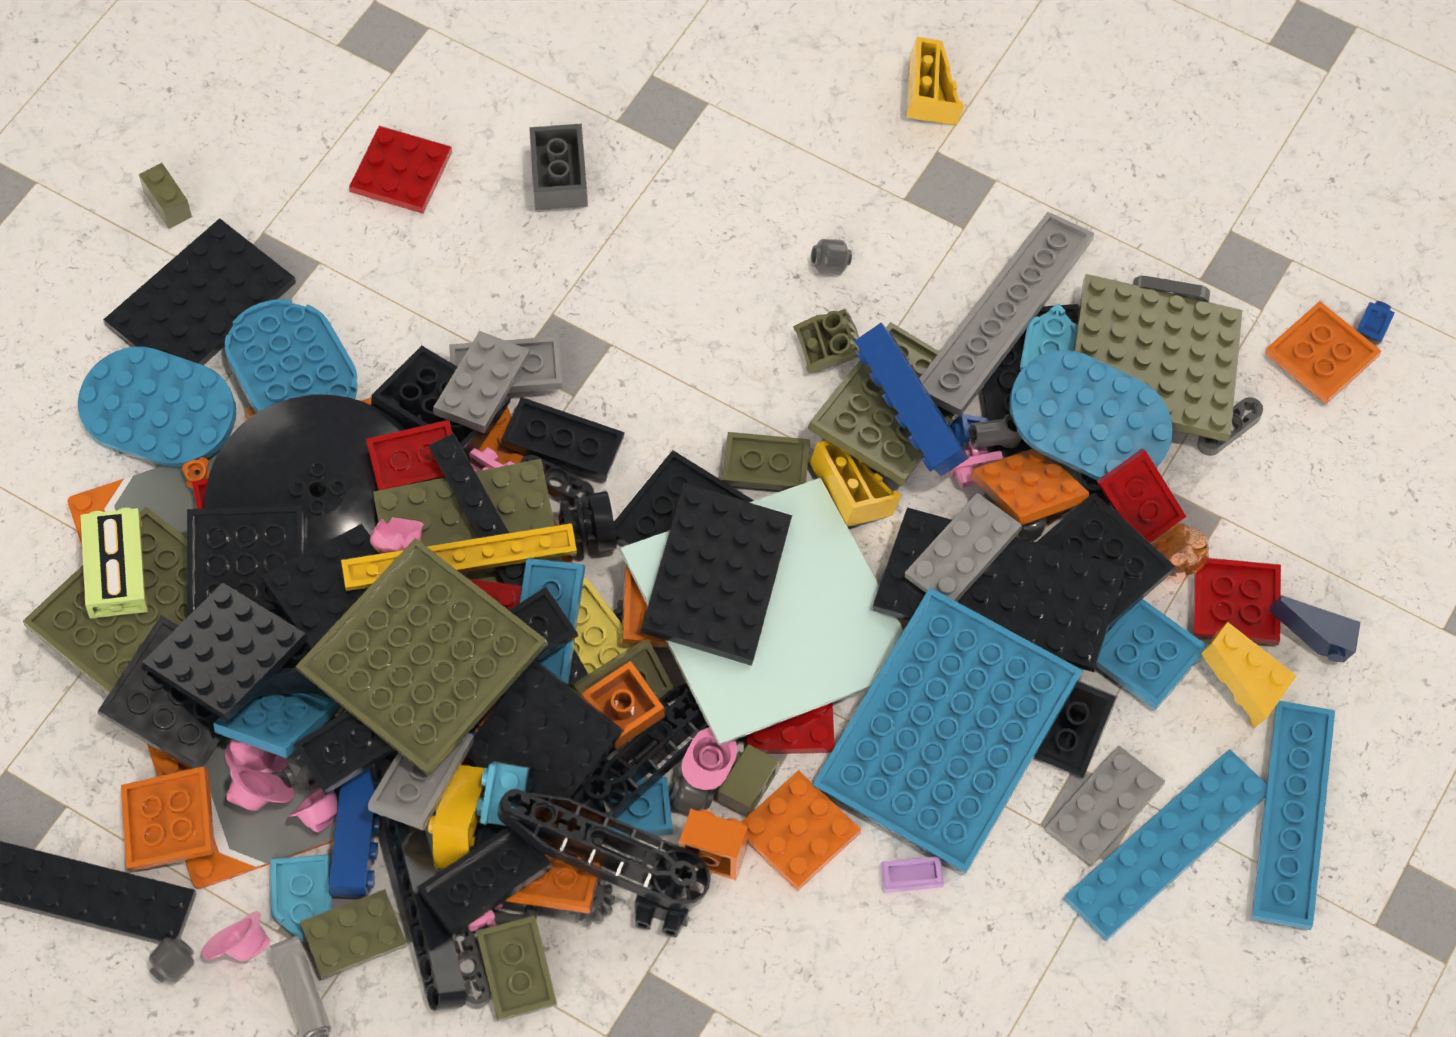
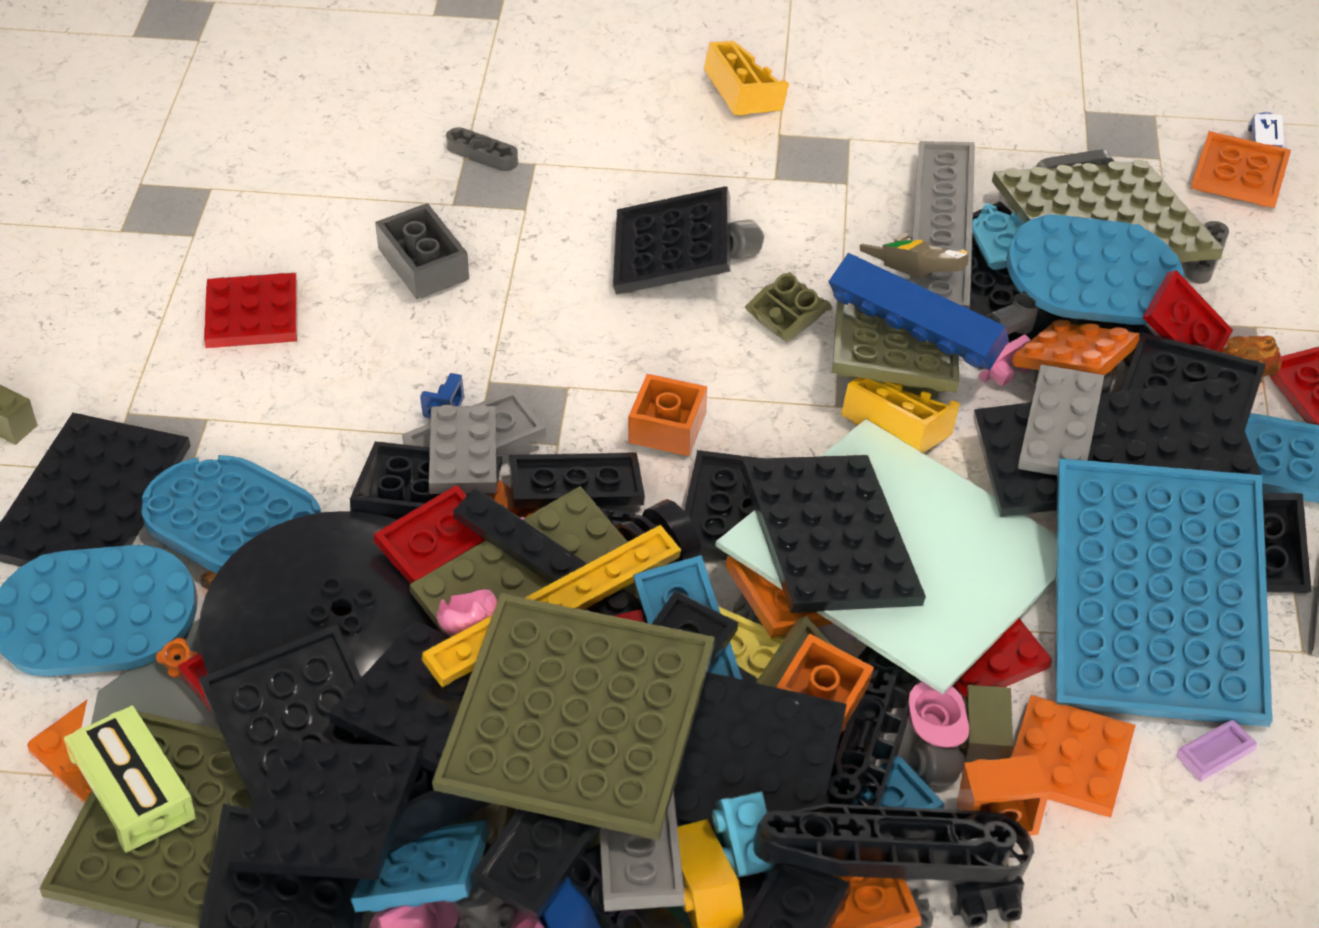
camera: 25 degrees left, 15 degrees down
(506, 323) = (448, 394): none -> blue bracket
(665, 408) = (667, 414): none -> orange brick
(669, 61) = (498, 155): none -> dark grey beam
(765, 461) = (797, 427): olive plate -> none
(767, 237) = (672, 240): none -> black plate
(947, 346) = (917, 256): none -> dark tan animal

